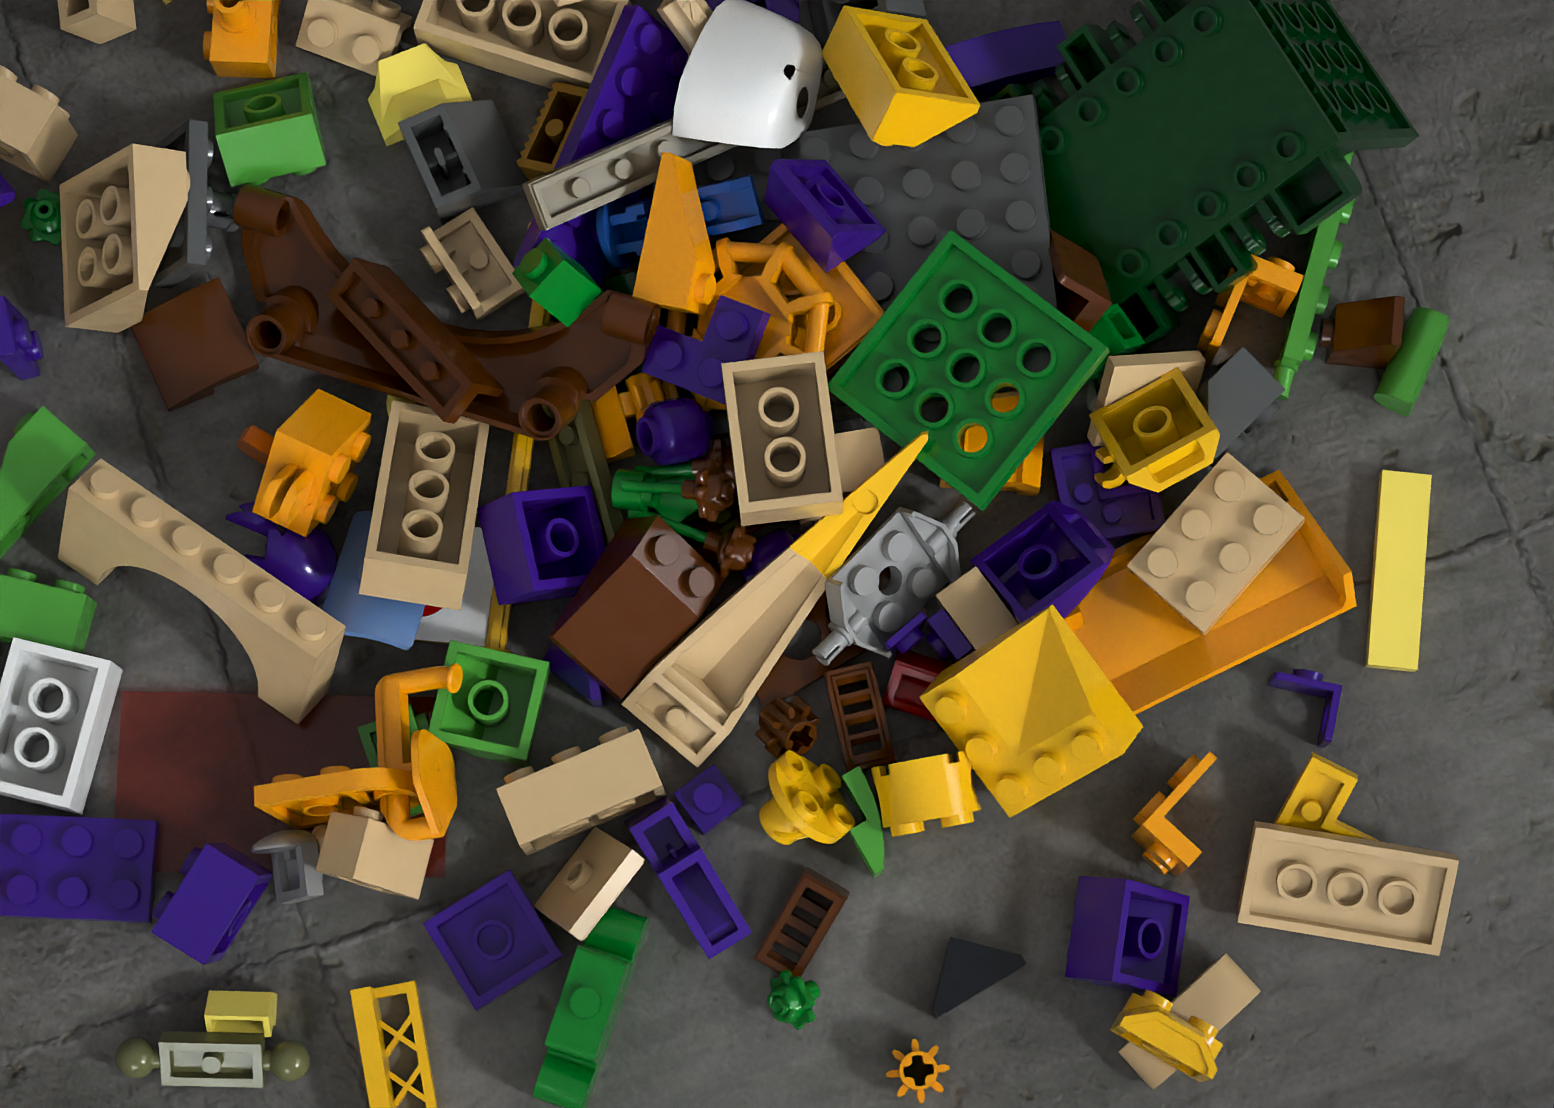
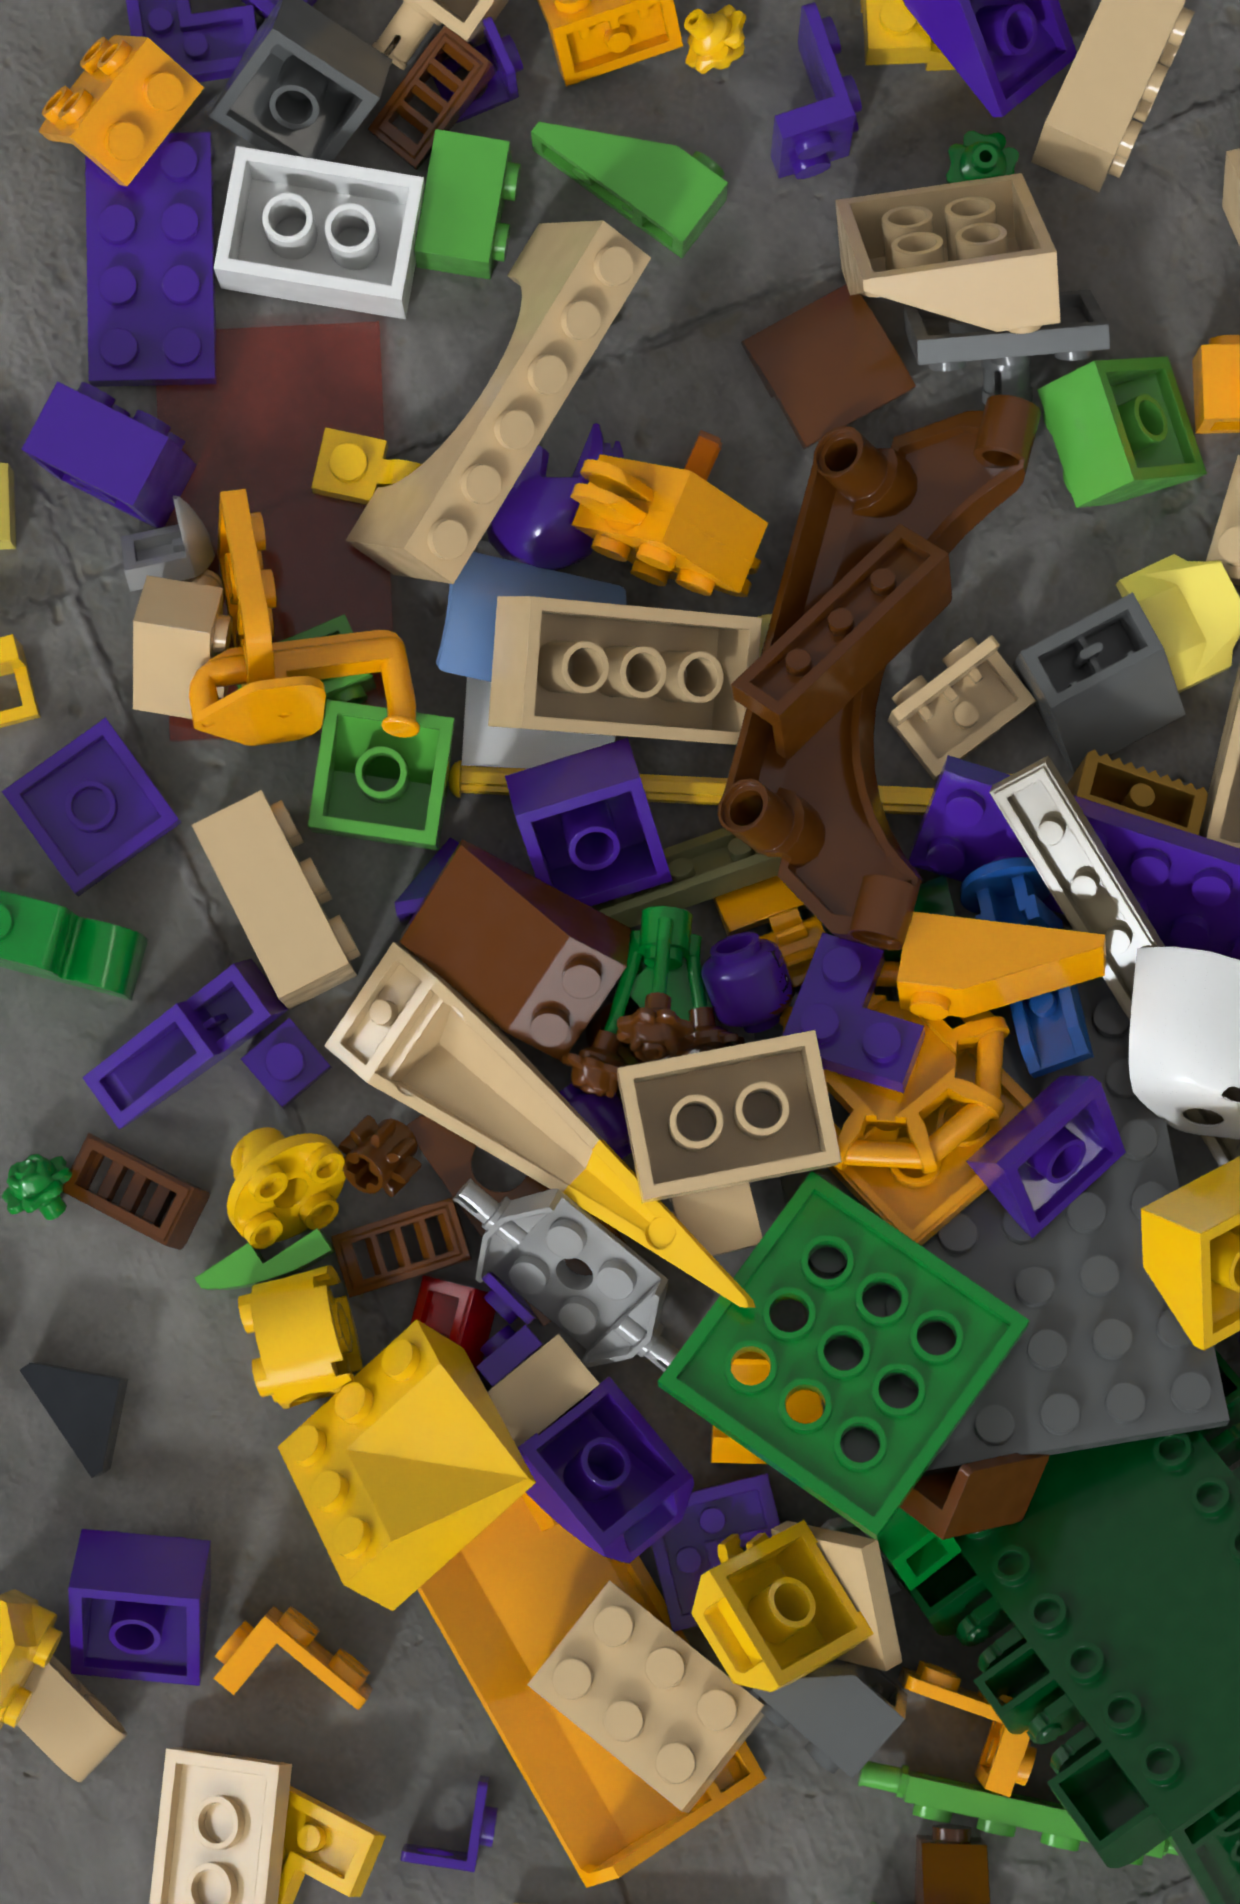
camera: 85 degrees right, 5 degrees up
(239, 715) = (355, 466): none -> yellow plate
(556, 282) = (925, 812): green brick -> none
(589, 883) = (161, 918): tan plate -> none

